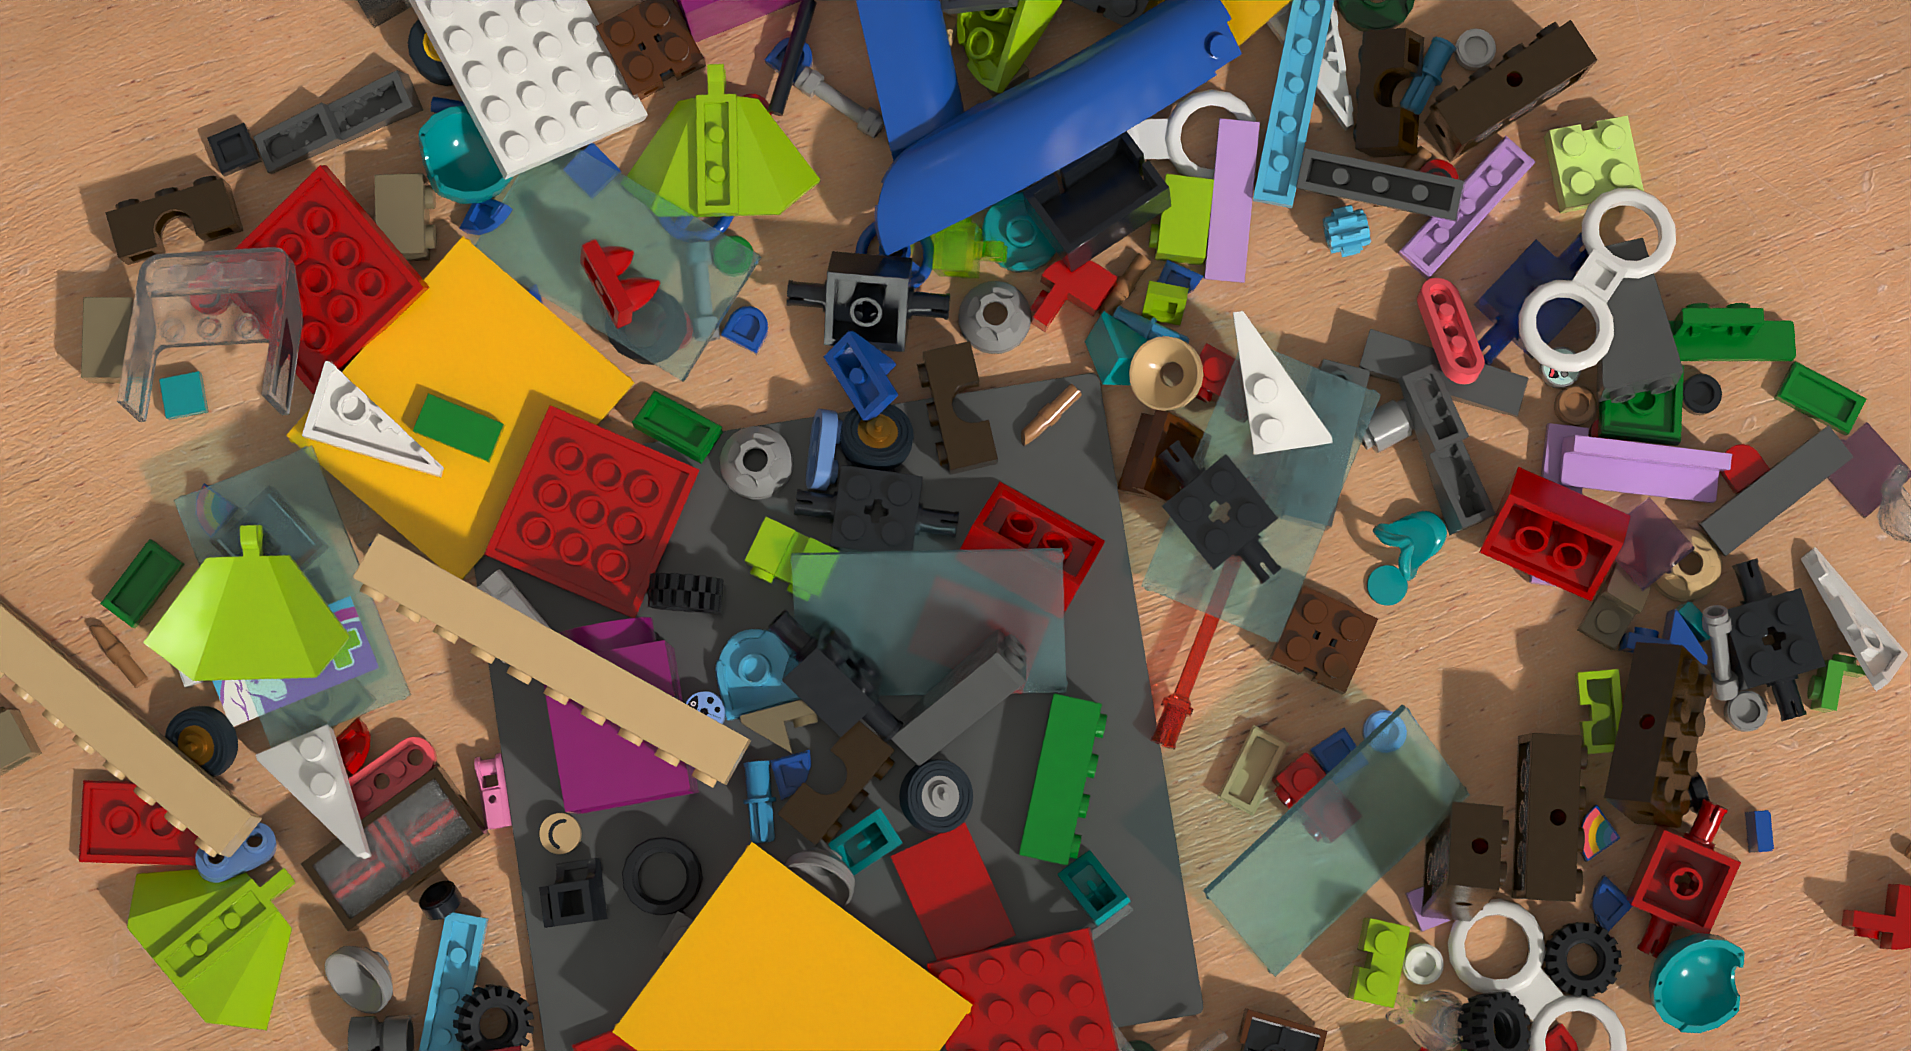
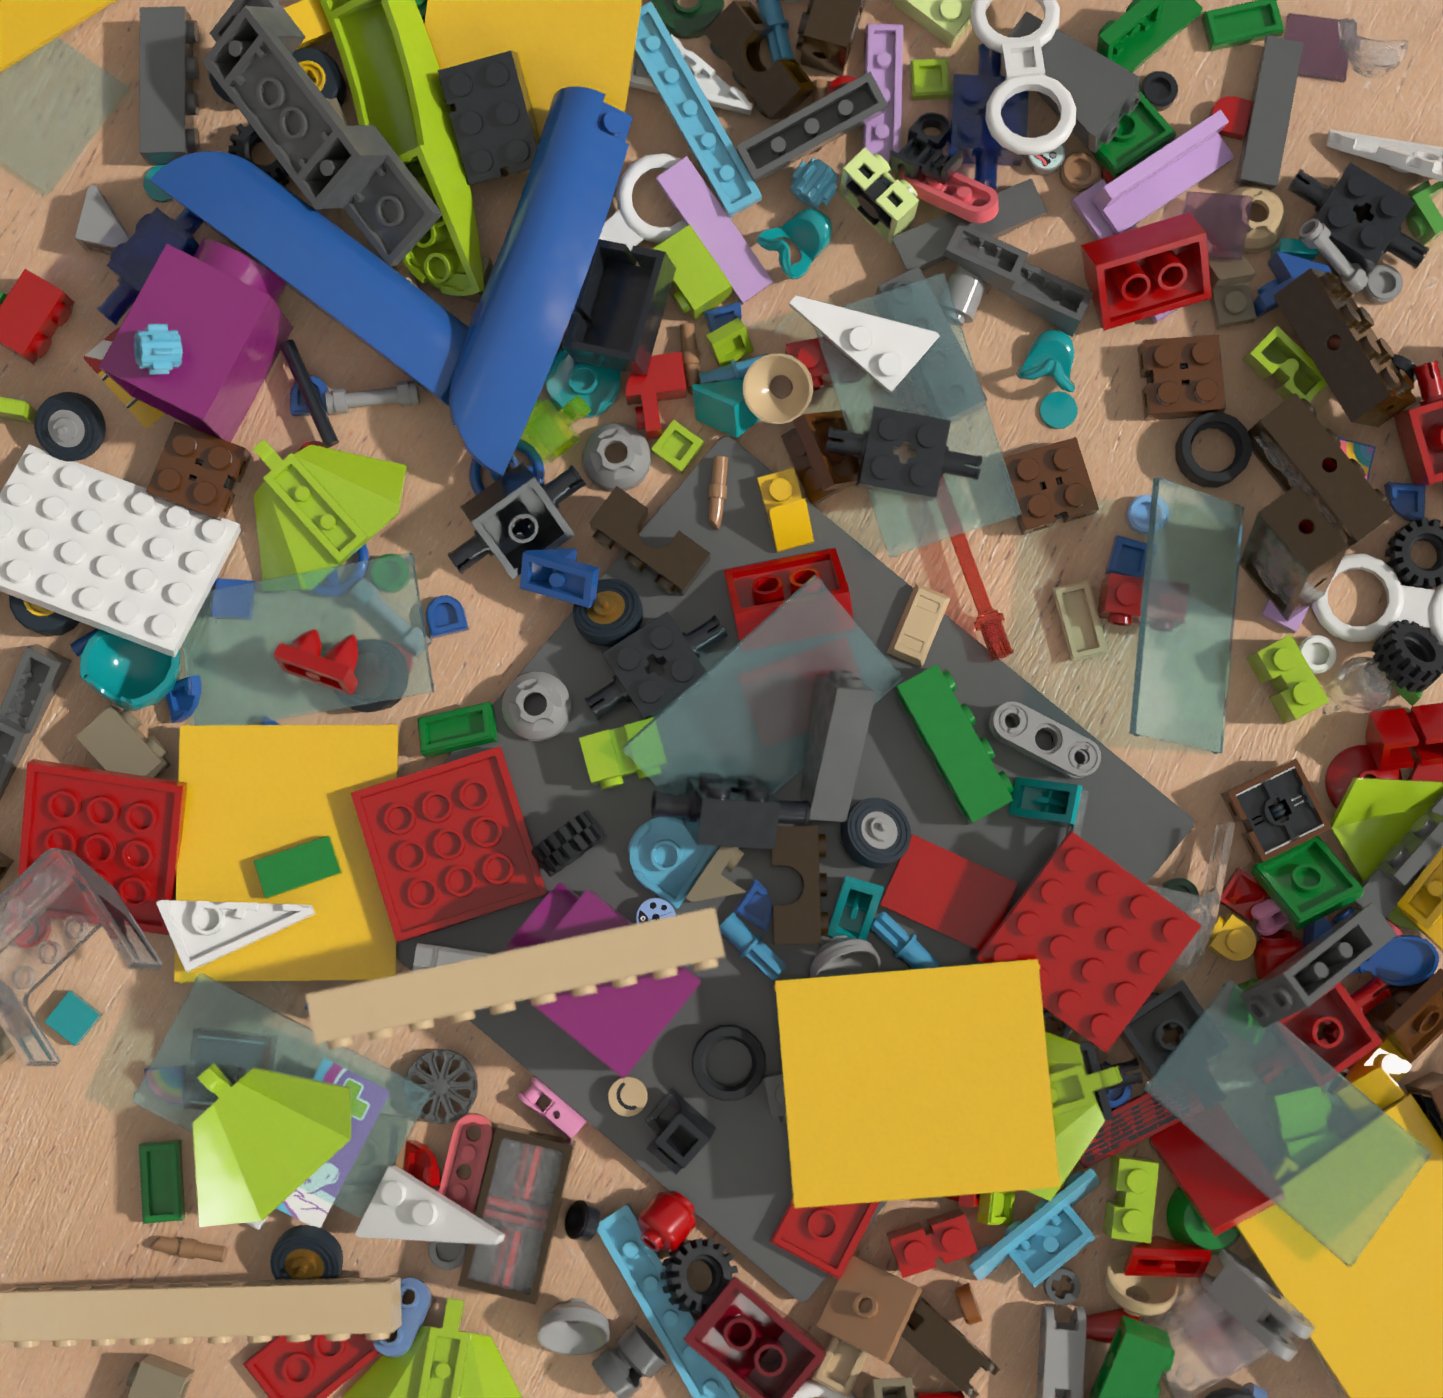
camera: 40 degrees left, 0 degrees up
(313, 833) = (447, 1254): none -> light grey tile
(425, 700) = (445, 1085): none -> dark grey wheel
(505, 958) = (666, 1221): none -> red head
(824, 436) = (570, 644): medium blue plate -> none
(881, 902) = (902, 943): none -> dark azure axle
(1050, 350) = (677, 446): none -> lime tile
(1091, 476) = (785, 510): none -> yellow slope
(1117, 661) = (918, 625): none -> tan tile
(1152, 856) = (1065, 741): none -> light grey piece
(1309, 267) = (808, 231): none -> teal piece
(1386, 285) = (877, 196): none -> yellowish green piece
(1458, 290) = (926, 151): none -> black piece
(1505, 703) = (1227, 424): none -> black tyre
(1510, 645) = (1181, 377): none -> reddish brown piece
(1519, 225) = (929, 79): none -> lime tile

